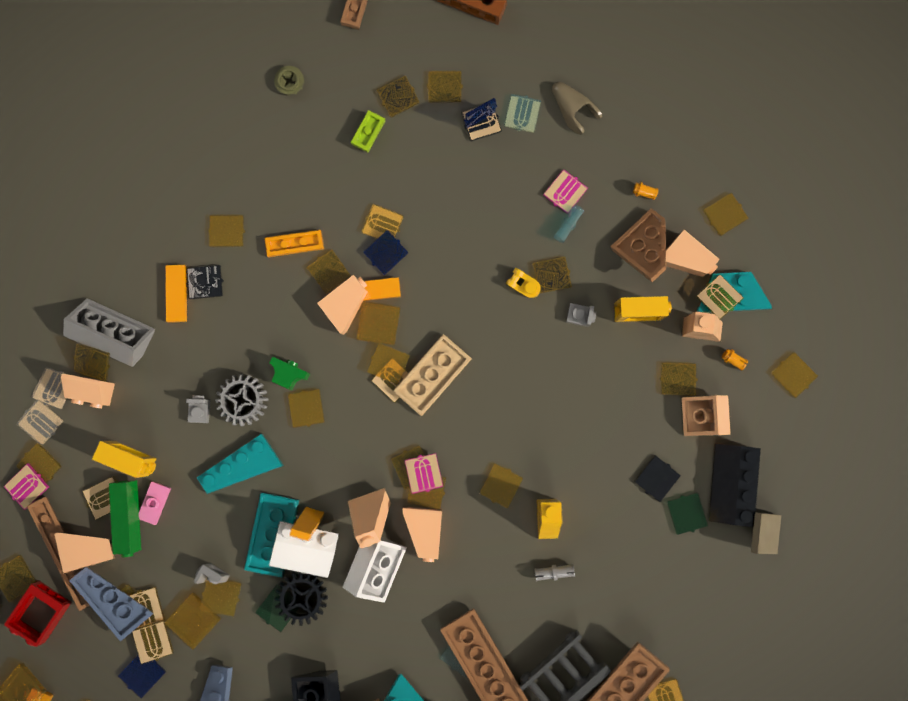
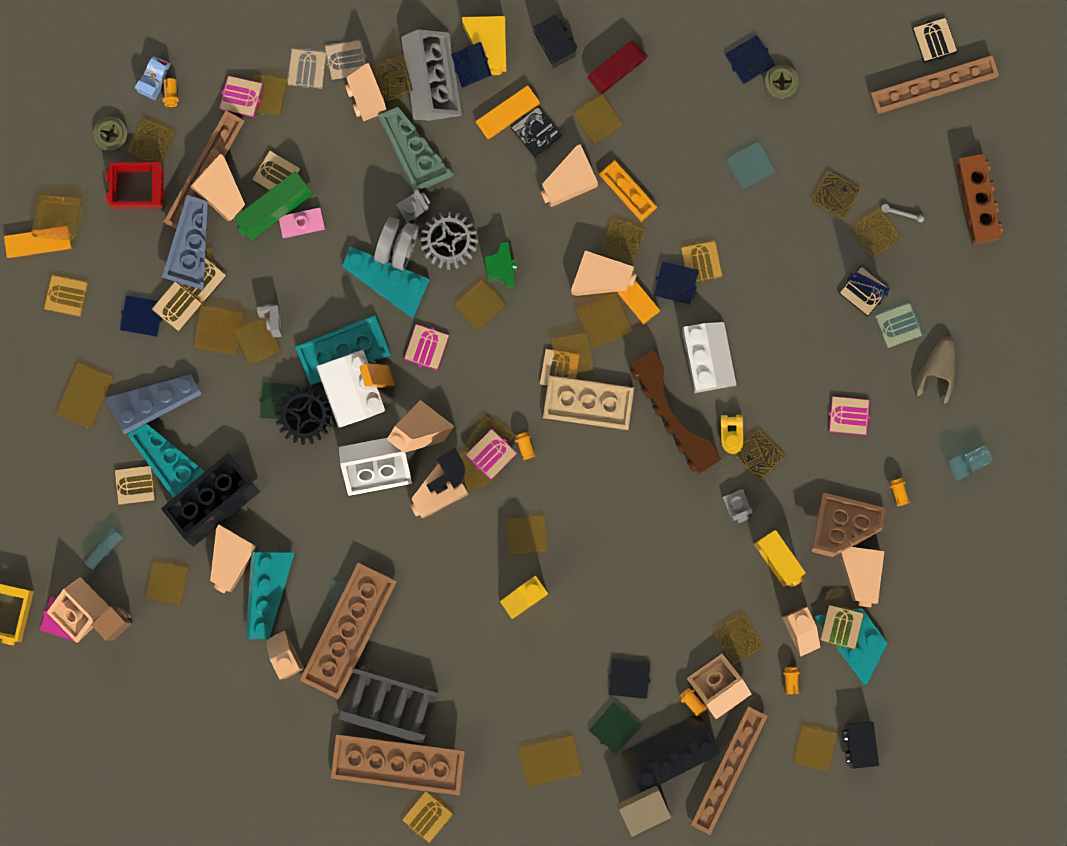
camera: 55 degrees right, 0 degrees up
(112, 273) = (491, 34): none -> yellow slope
(120, 296) = (471, 65): none -> clear blue piece
(124, 459) = (326, 170): yellow window -> none
(146, 224) = (555, 41): none -> black brick
(165, 383) = (417, 159): none -> sand green wing
(196, 190) = (617, 66): none -> dark red beam
(216, 442) = (396, 243): none -> light grey wheel
(256, 280) = (569, 179): none -> light nougat slope
(257, 93) = (750, 59): none -> clear blue piece
(311, 469) = (426, 347): none -> piece
(335, 143) = (750, 165): none -> clear light blue piece
(368, 131) = (781, 189): lime plate -> none
(417, 511) = (454, 472): none -> black brick
(431, 67) = (885, 208): none -> light grey hinge
(434, 443) = (525, 445): none -> light orange pin
(456, 264) = (708, 356): none -> white slope
(523, 317) = (698, 450): none -> reddish brown arch
(554, 572) = (478, 636): light grey pin -> none
(568, 223) = (818, 438): clear light blue pin -> none
(655, 133) = (965, 464): none -> clear light blue piece
(682, 579) = (550, 761): none -> clear yellow piece
(705, 442) = (692, 701): none -> light orange pin
(725, 214) = (929, 584): clear yellow piece -> none
(773, 449) = (728, 770): none -> medium nougat plate
(814, 339) = (860, 745): none -> black brick

